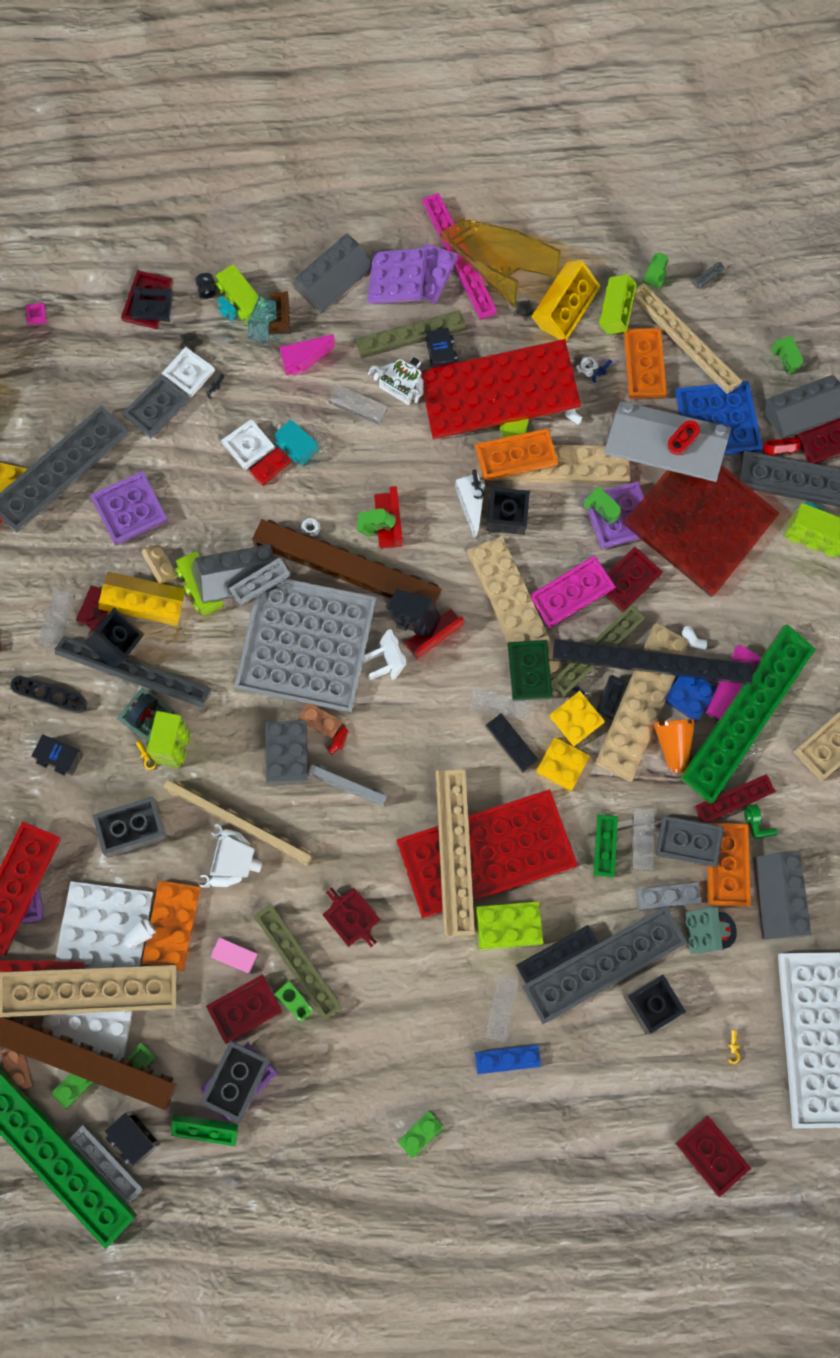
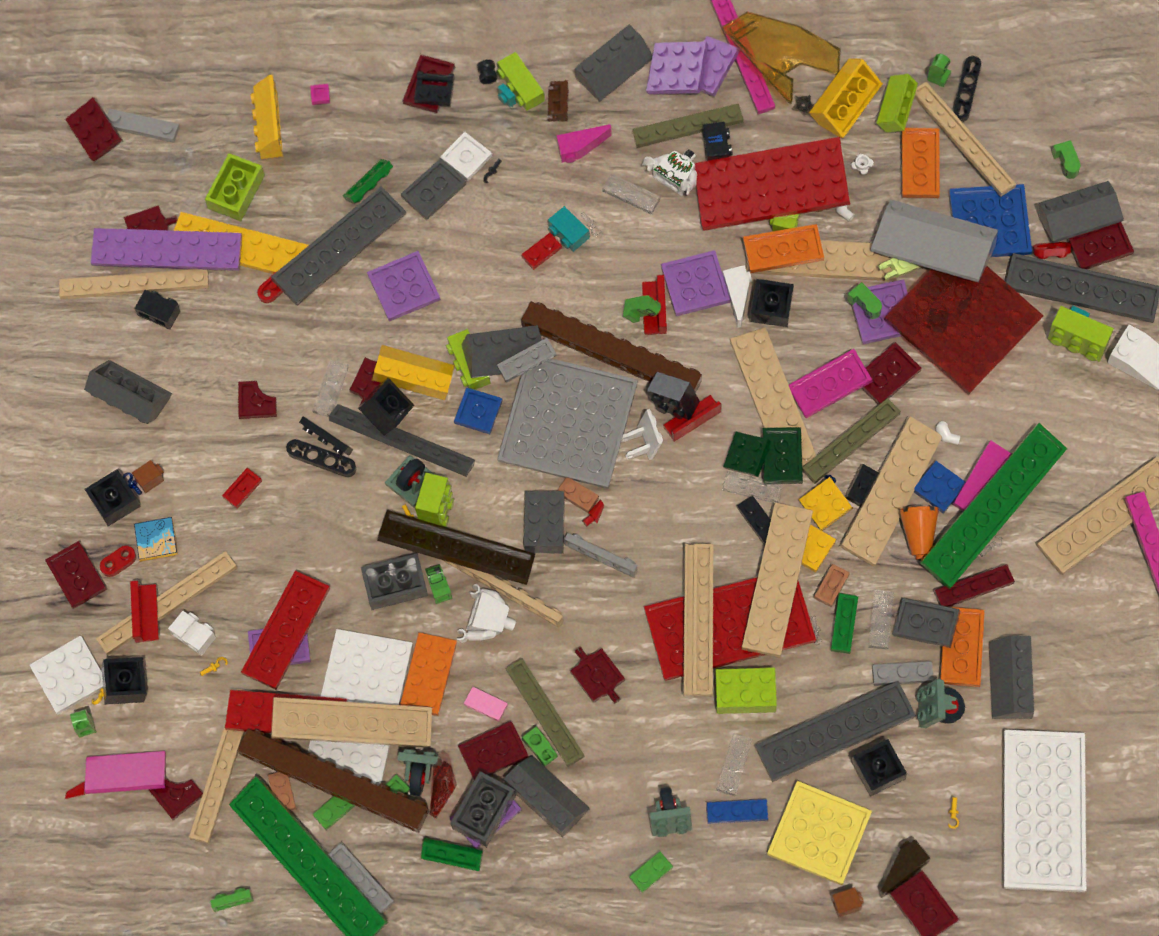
camera: 15 degrees right, 5 degrees down
(51, 672) = (325, 437): none -> black plate
(56, 755) = (327, 514): black brick -> none
(88, 401) = (368, 181): none -> green plate
(131, 1138) = (385, 852): black brick -> none
(141, 932) = (400, 676): white cone -> none
(159, 564) = (431, 340): tan plate -> none
(164, 1036) = (418, 768): none -> plate
(177, 826) = (438, 584): none -> bright green leg
(189, 1060) = (443, 787): none -> clear red wing
(190, 336) = (469, 121): clear smoke plate -> none
(193, 787) = (456, 547): none -> dark brown plate
(212, 636) = (478, 411): none -> blue plate
(248, 444) = (521, 229): white plate -> none
(262, 314) = (541, 102): clear light blue slope -> none
(304, 1055) = (546, 795): none -> dark grey slope
(310, 522) = (578, 306): white plate -> none
(428, 493) = (695, 283): none -> medium lavender plate
(438, 1078) = (670, 816): none -> sand green plate
(476, 483) = (742, 275): black hand -> none
(493, 670) = (747, 454): none -> dark green plate
(533, 804) = (777, 580): none -> tan plate
(556, 954) = (790, 718): black plate -> none
(589, 805) = (831, 585): none -> nougat plate
(596, 1079) = (819, 833): none -> light yellow plate
(602, 370) = (877, 168): clear blue hand -> none
(631, 1156) = (847, 902): none -> dark orange brick
(632, 469) = (899, 268): none -> yellowish green hinge
(652, 662) = (902, 452): black plate -> none
(683, 438) = (947, 238): red plate -> none
(684, 288) = (967, 88): none -> black beam
(688, 1111) = (908, 862): none -> dark brown slope
(708, 275) = (994, 75): dark grey axle -> none
(753, 816) = (990, 603): green plate -> none

